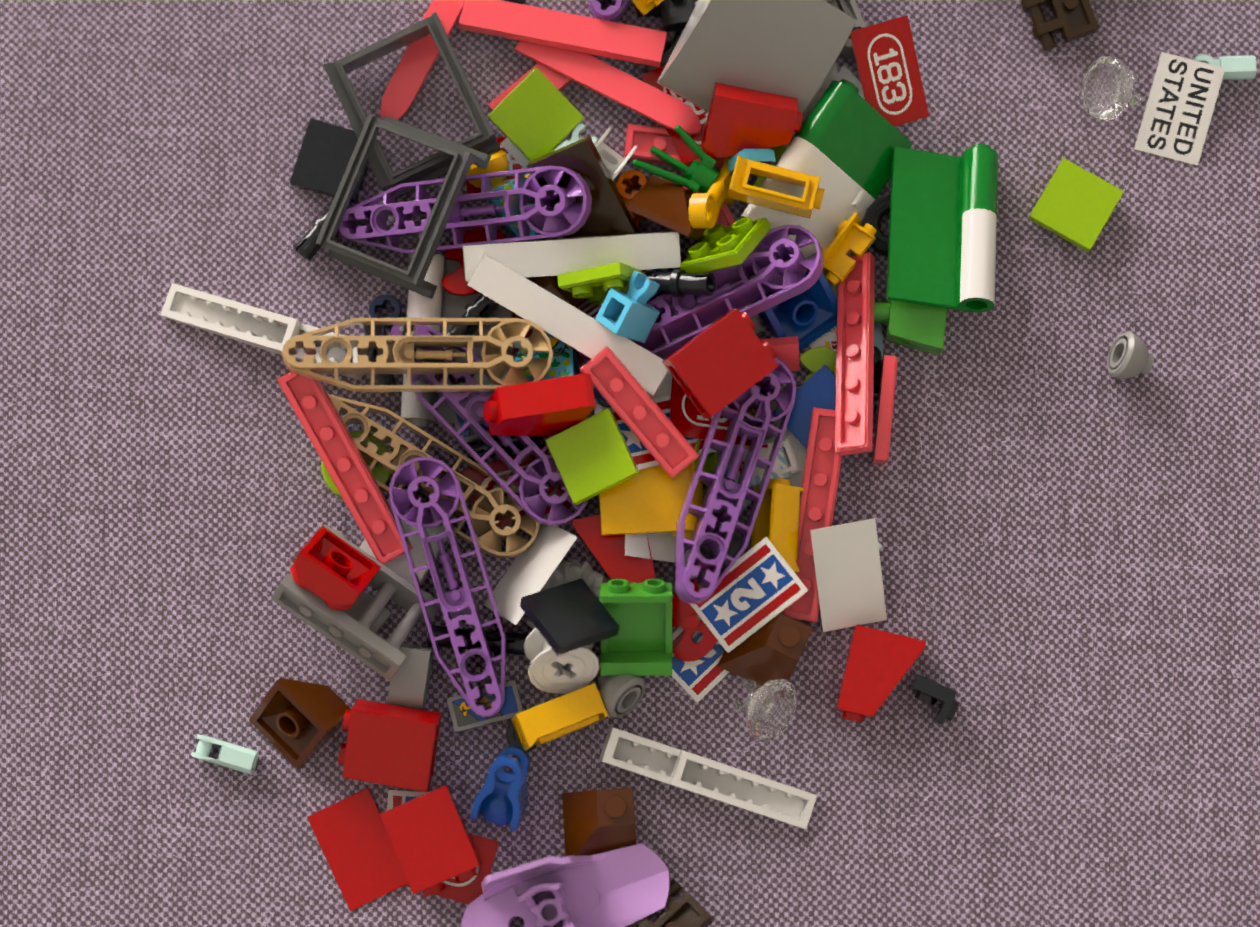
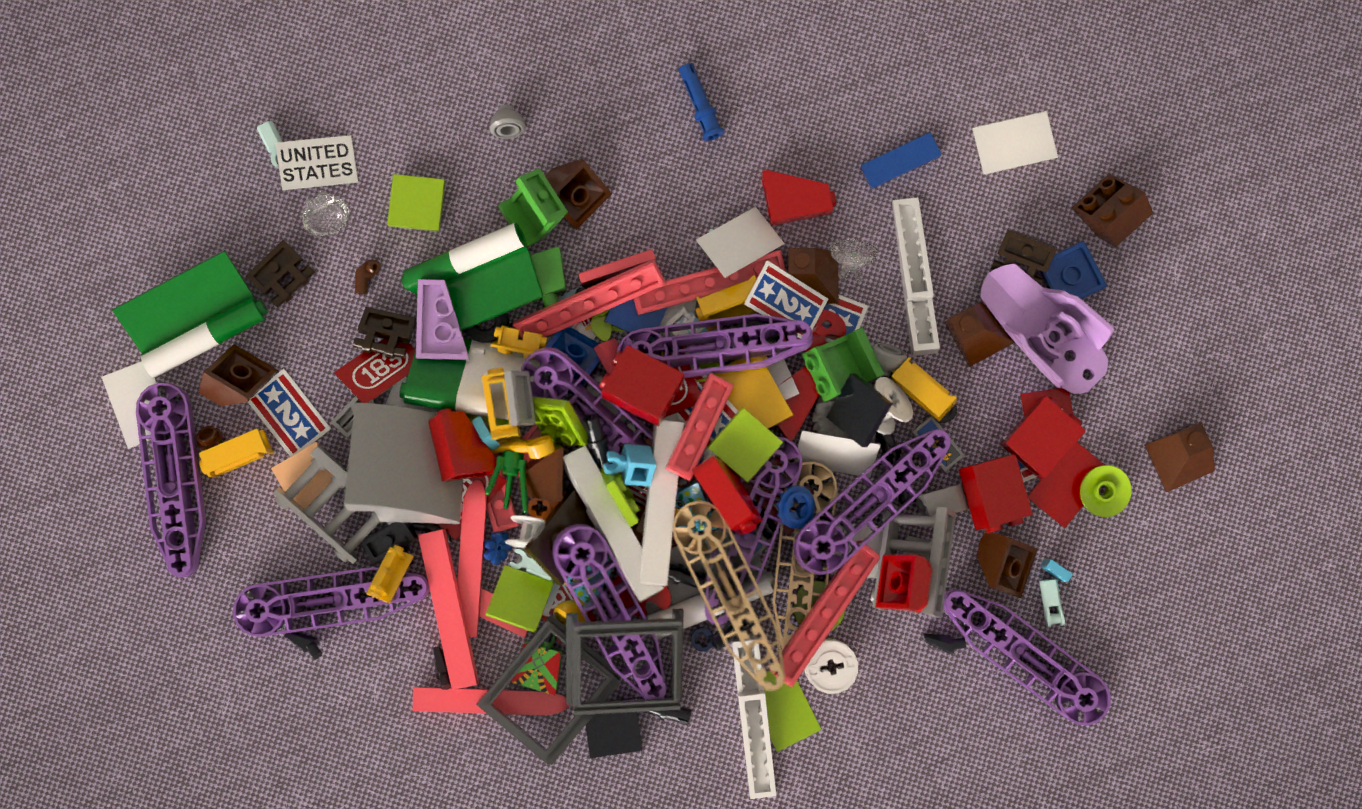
camera: 120 degrees left, 5 degrees up
(196, 680) = (1013, 647): none -> medium lavender beam
(240, 600) = (944, 642): none -> black bar
(245, 374) = (788, 714): none -> lime sticker
(260, 777) = (1056, 570): none -> medium azure tile
(269, 431) = (842, 676): none -> white piece
(311, 886) = (1116, 493): none -> lime dish
(440, 107) = (542, 668): none -> torso
(479, 495) = (804, 511): none -> blue gear
(504, 793) = (990, 403): blue piece -> none
(608, 115) = (497, 547): none -> blue plant
(772, 210) = (519, 398): none -> light grey tile
(863, 829) = (900, 160): none -> blue tile
(911, 161) = (437, 324): none -> lavender wing
(930, 692) = (792, 156): black bracket -> none
(939, 102) = (387, 326): none -> dark brown plate
(1004, 336) = (534, 207): none -> bright green panel
(1004, 398) = (578, 190): none -> reddish brown slope
(1014, 106) = (364, 274): none -> reddish brown arm
(1033, 608) = (704, 113): none -> blue pin

